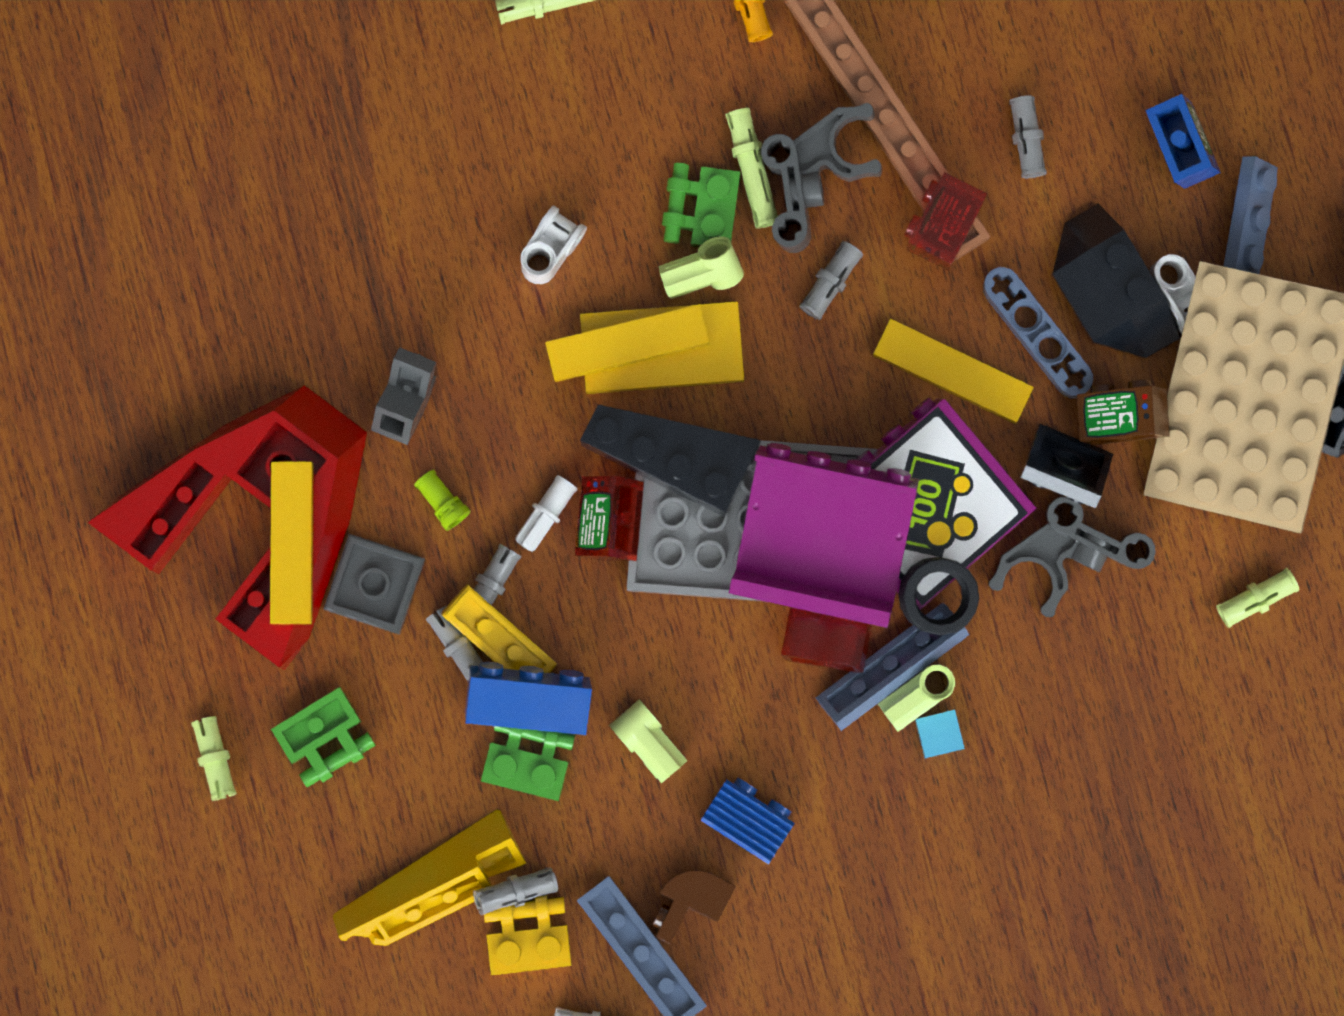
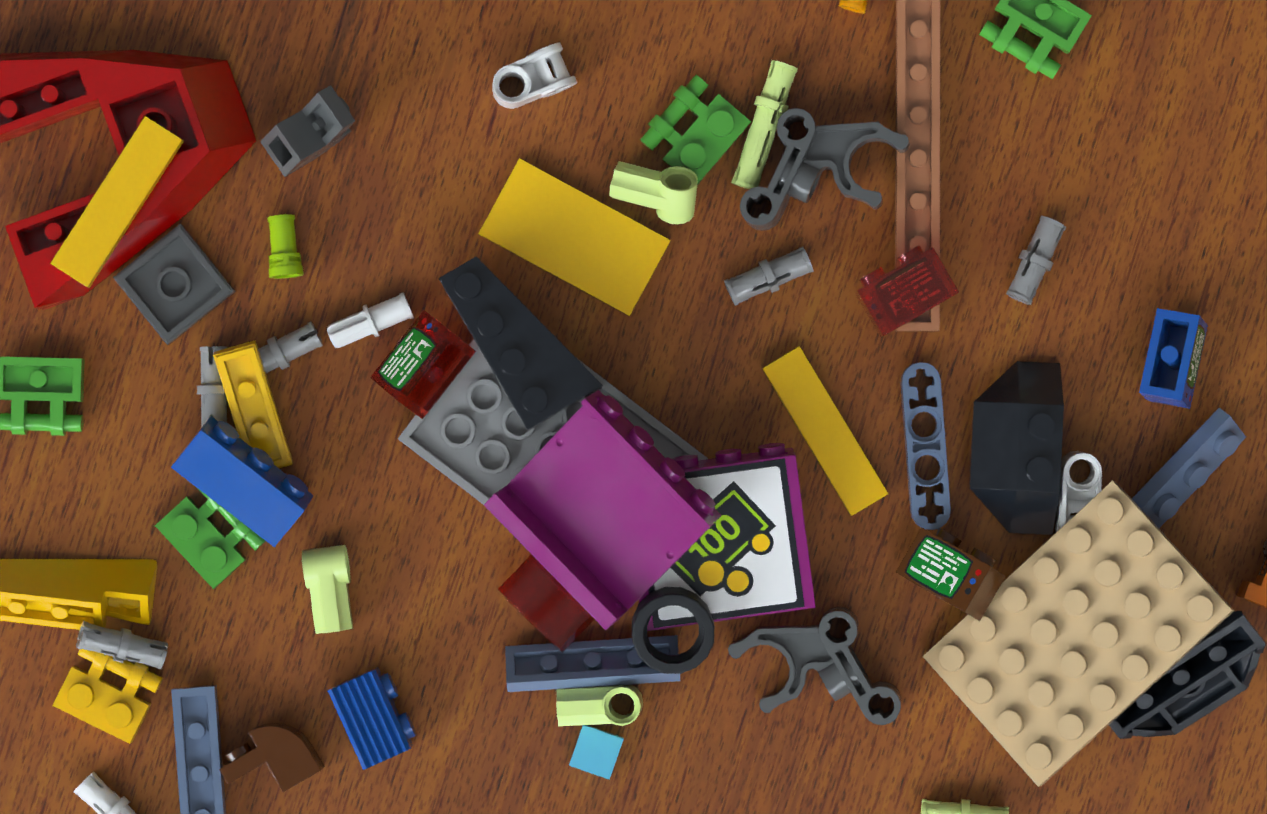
camera: 30 degrees right, 5 degrees up
(627, 343) = (543, 213): yellow tile -> none
(1067, 466) = (869, 587): black plate -> none

